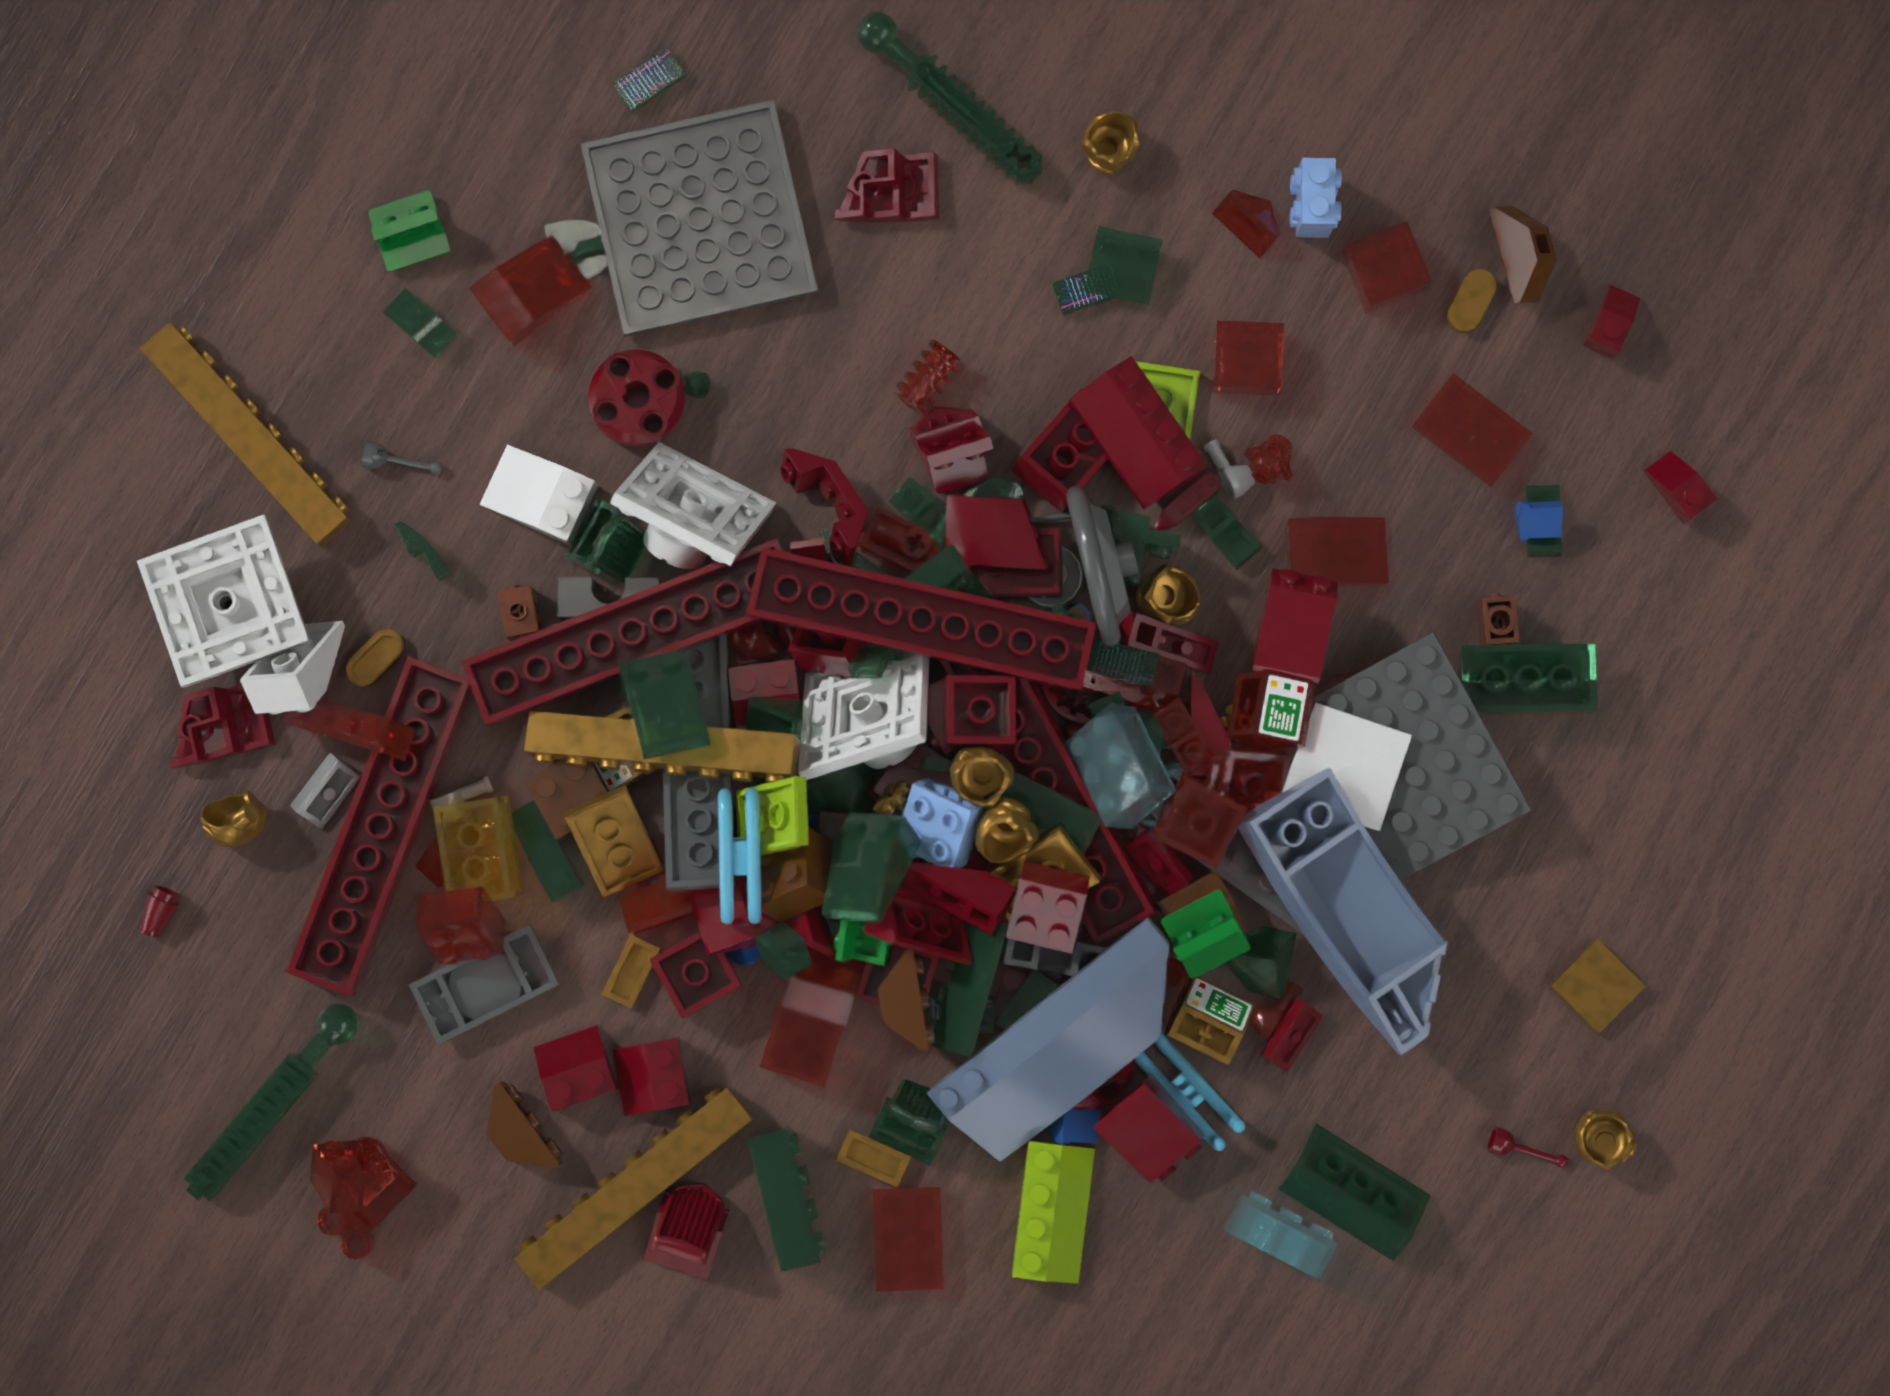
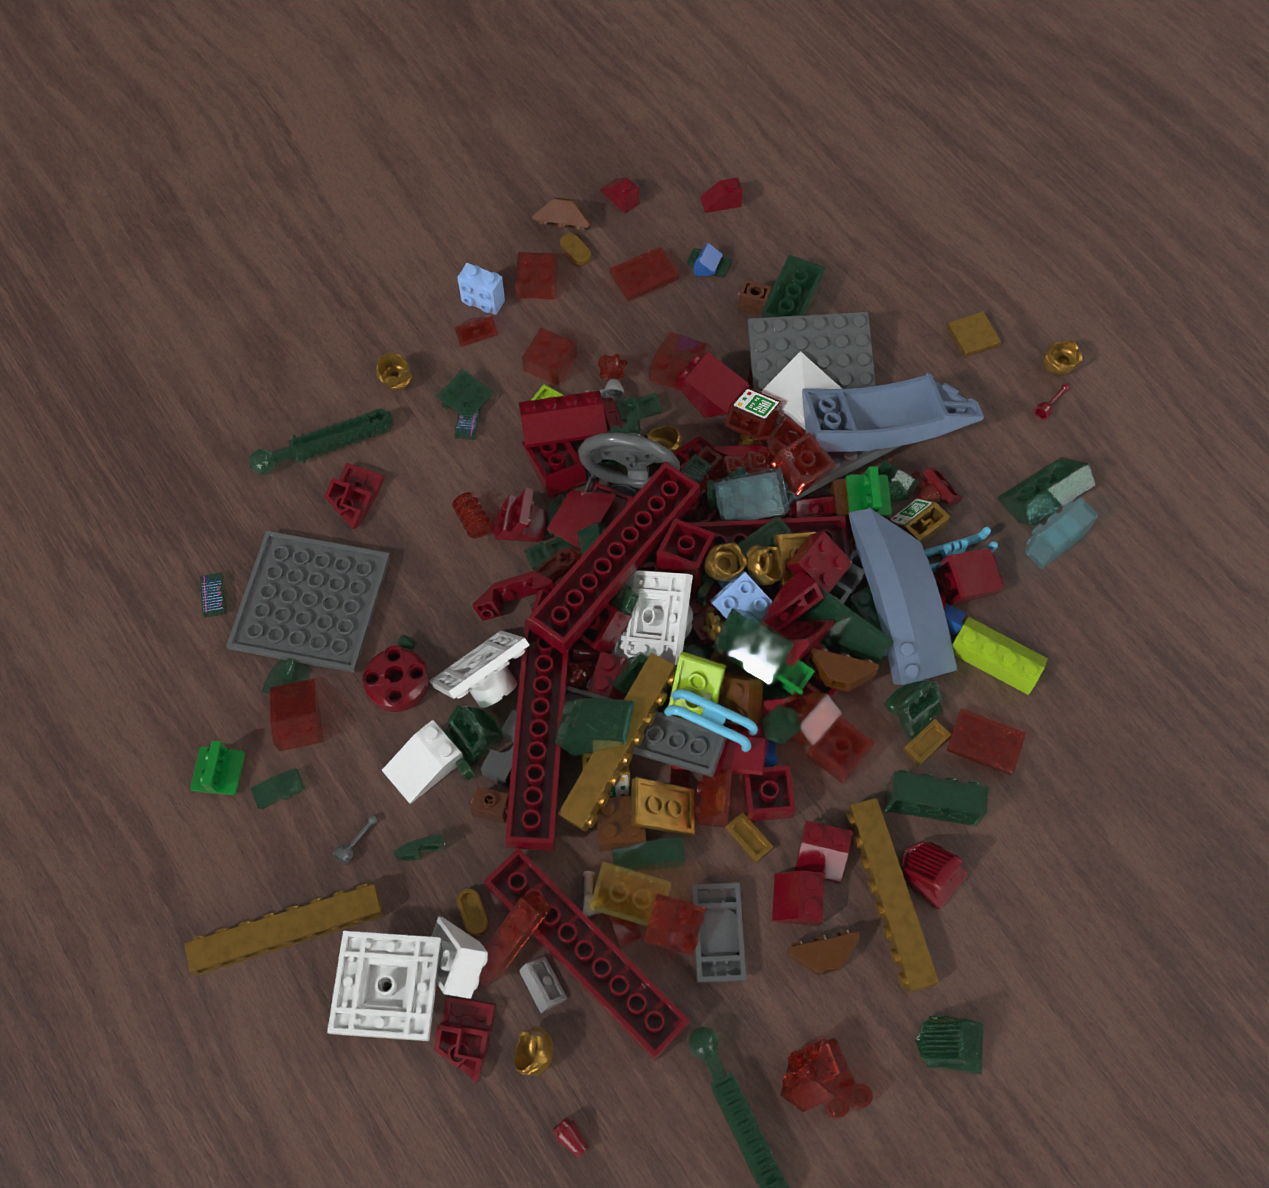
camera: 65 degrees left, 20 degrees down
(473, 1334) = (951, 1044): none -> clear green piece
(553, 554) = (464, 769): none -> clear green tile

